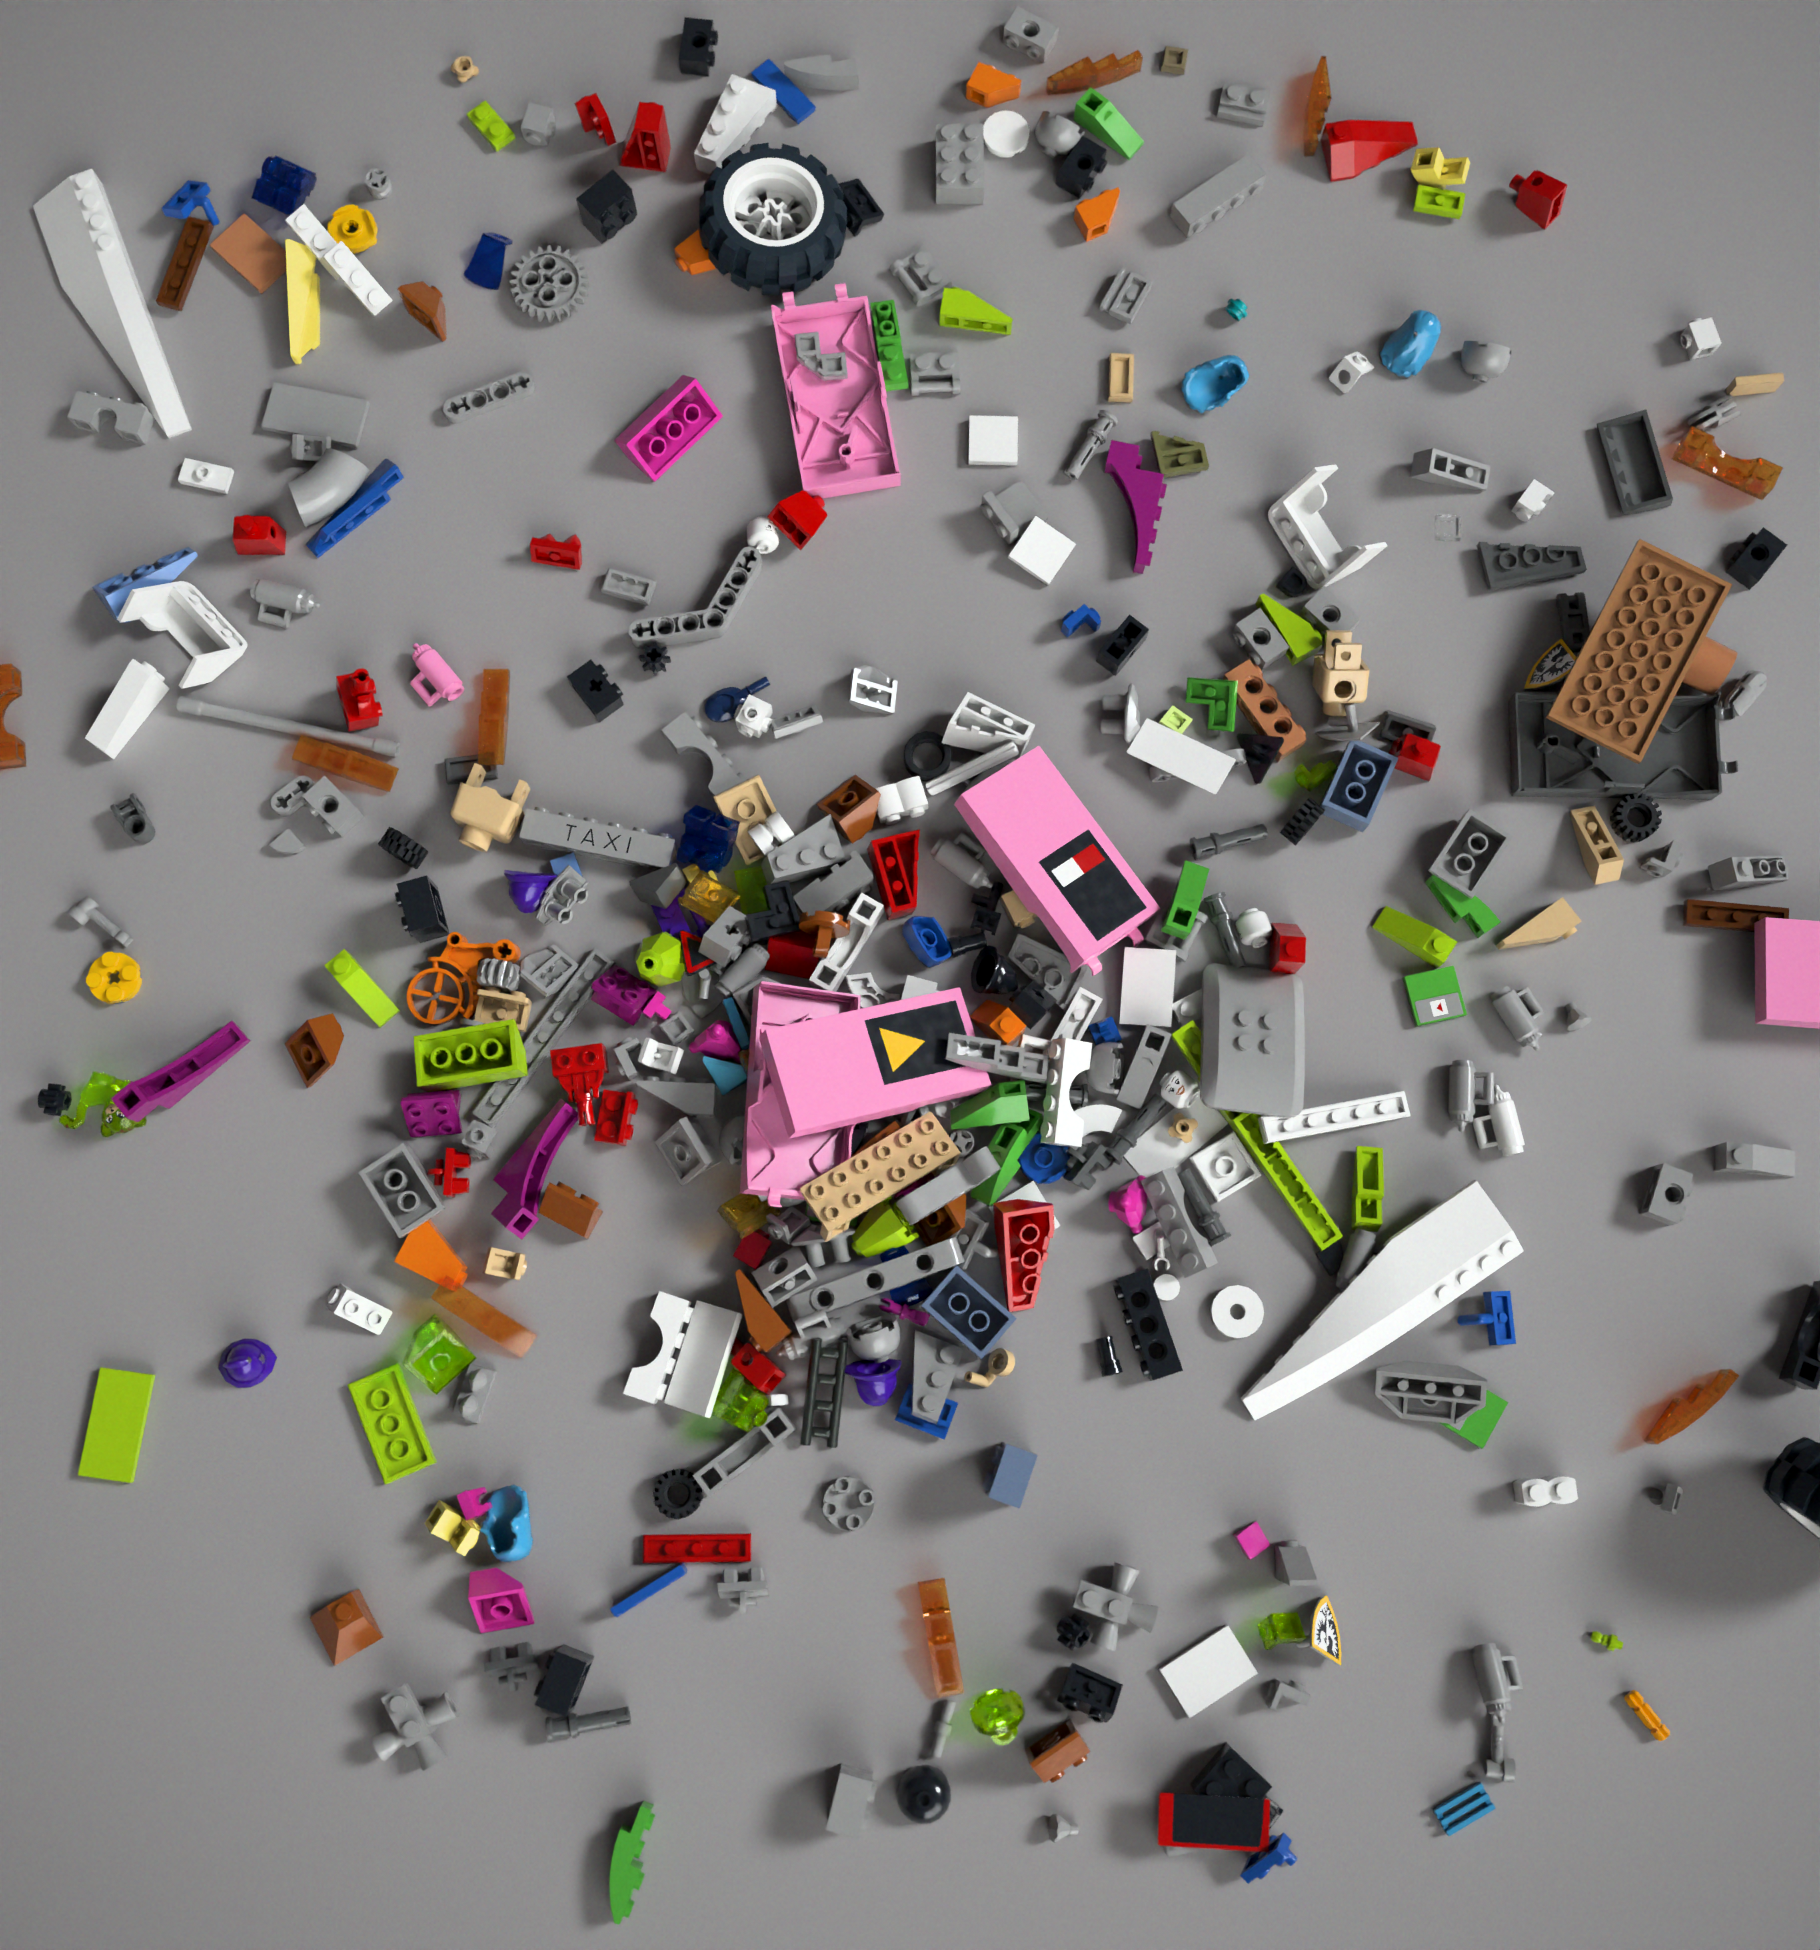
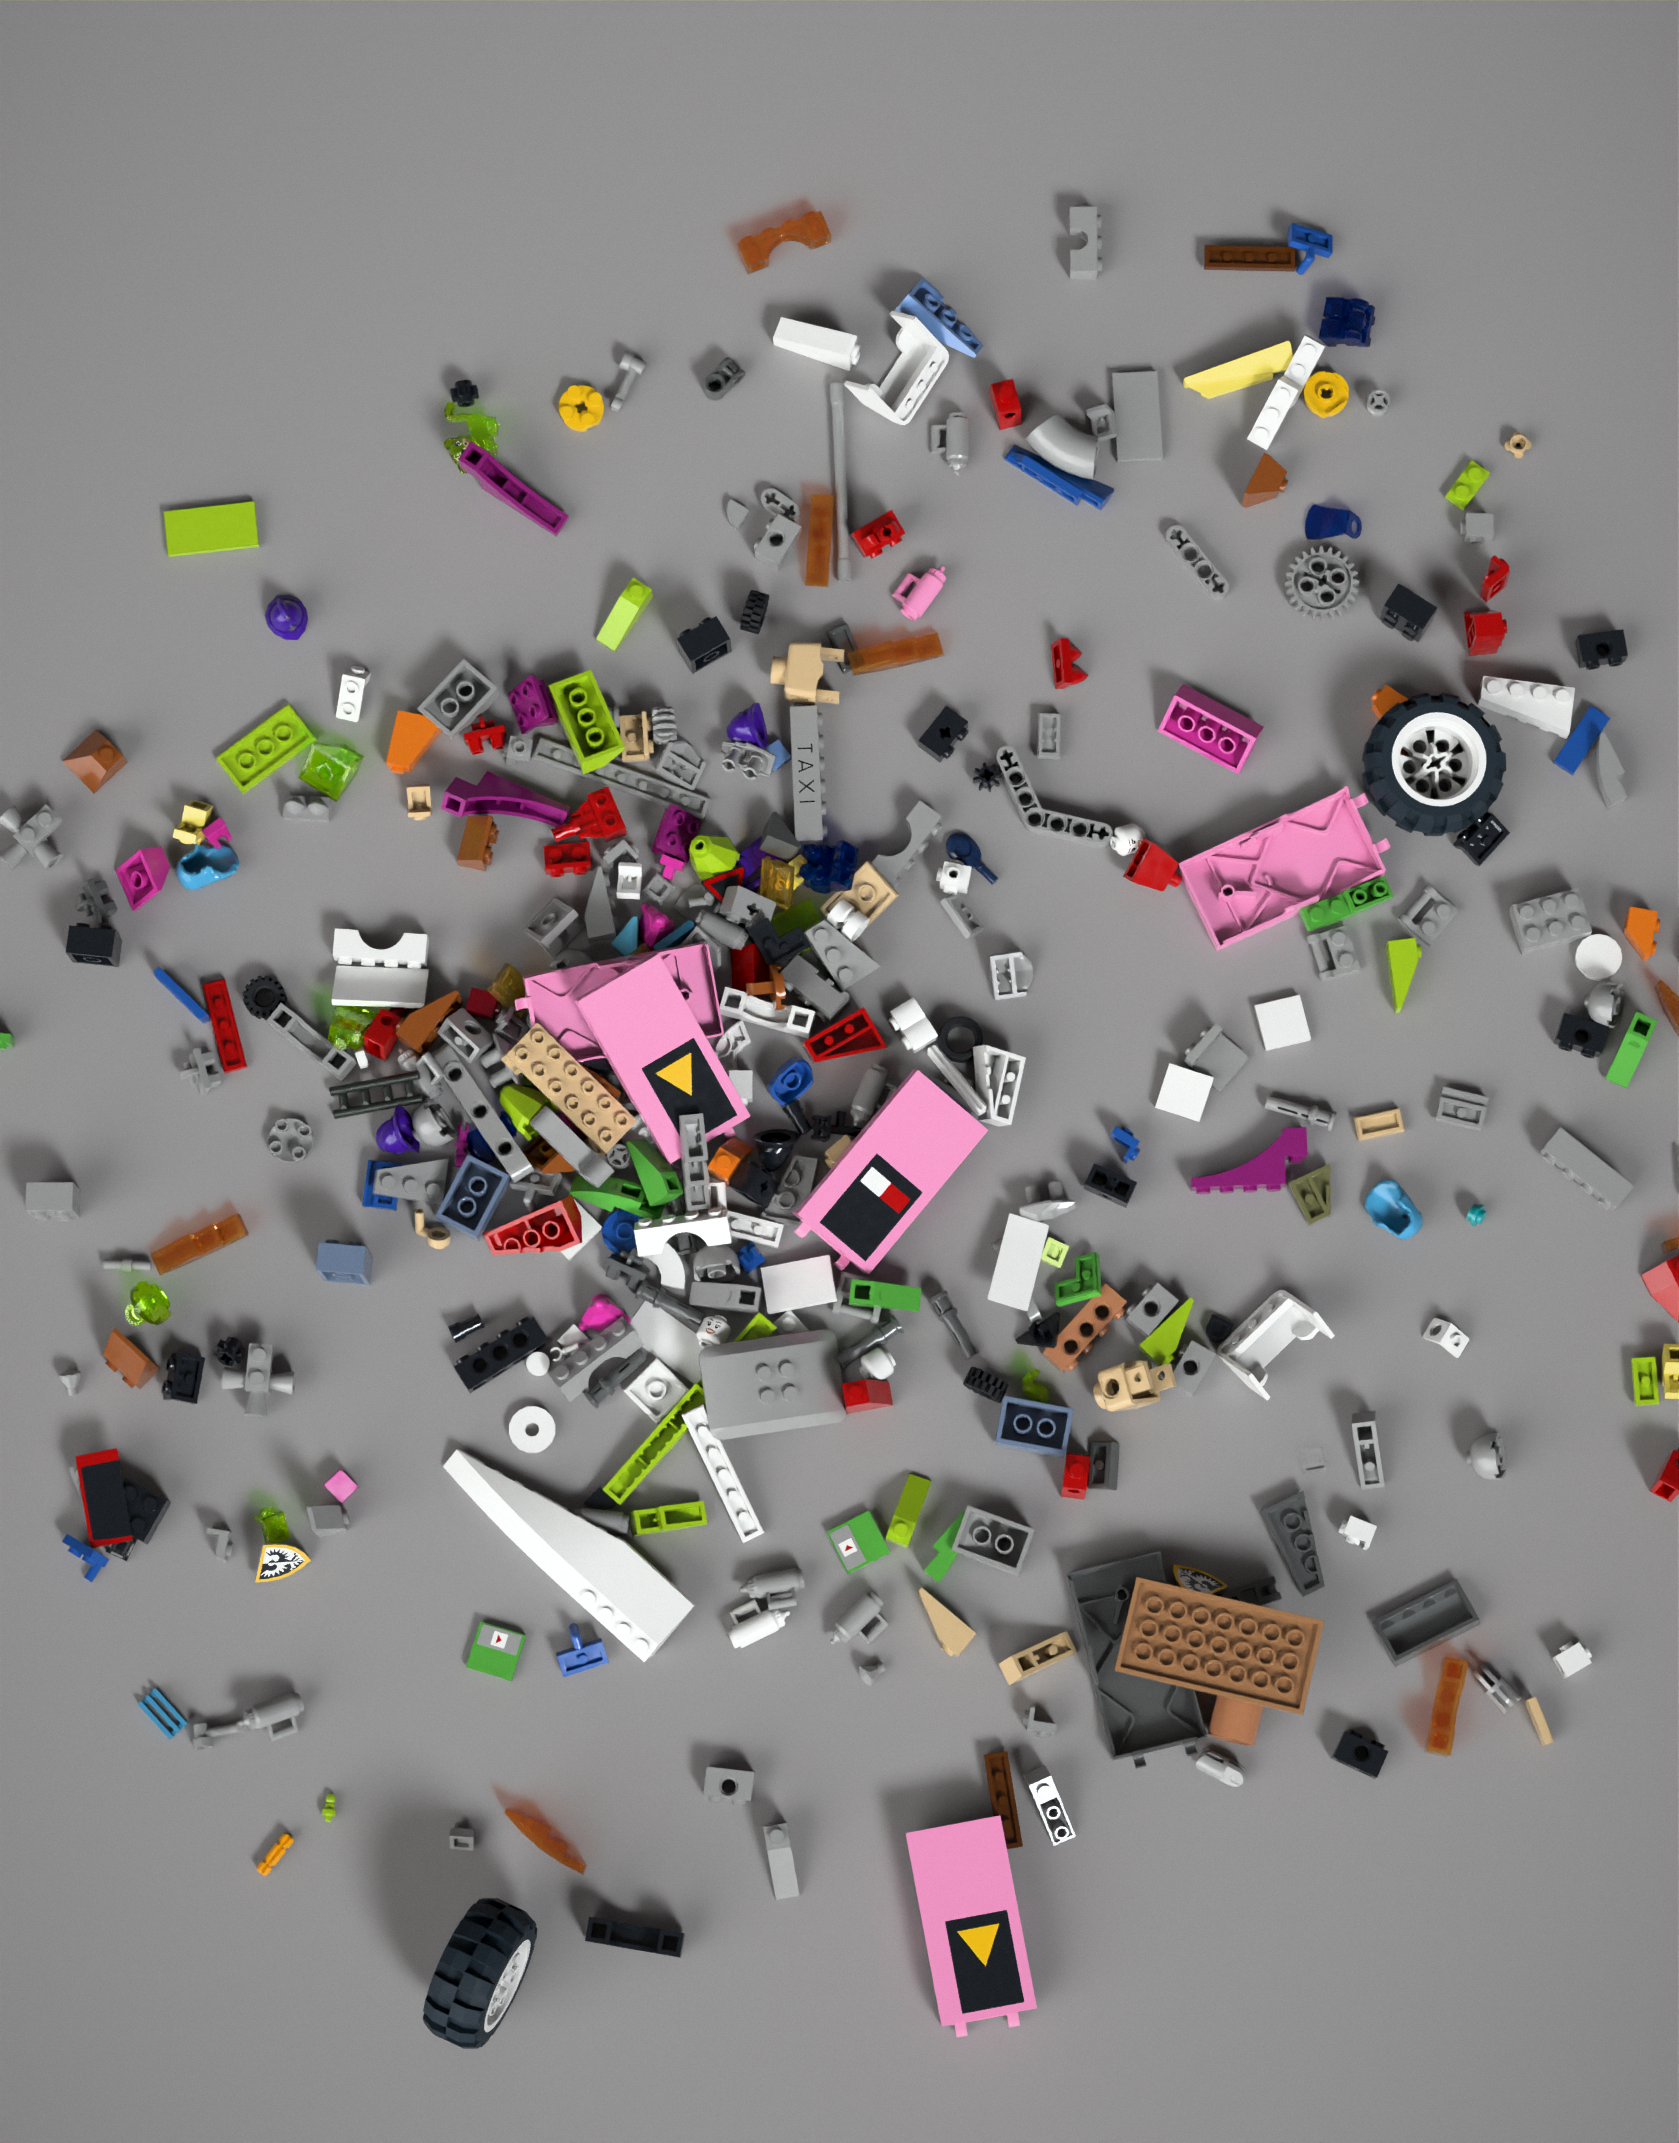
camera: 80 degrees right, 0 degrees up
(106, 291) = (1202, 200): white wedge -> none
(206, 475) = (1053, 340): white plate -> none
(251, 253) = (1278, 312): nougat tile -> none
(315, 1047) = (563, 592): dark orange slope -> none
(465, 958) = (672, 692): orange piece -> none
(484, 1316) = (370, 797): clear orange slope -> none
(574, 1724) = (60, 965): dark grey pin -> none
(825, 366) = (1316, 835): light grey tile -> none
(852, 808) = (894, 984): dark orange slope -> none
(923, 1794) = (71, 1262): black cylinder -> none
(1096, 214) = (1536, 1063): orange slope -> none
(1175, 1130) = (676, 1340): tan plate -> none
(1208, 1671) = (224, 1473): white tile -> none
(1346, 727) = (1082, 1406): light grey shield -> none
(1408, 352) = (1486, 1385): dark azure piece -> none
(1430, 1391) = (502, 1604): light grey wedge -> none
(1545, 1490) = (440, 1719): white brick -> none
(1625, 827) = (1088, 1690): black tyre -> none

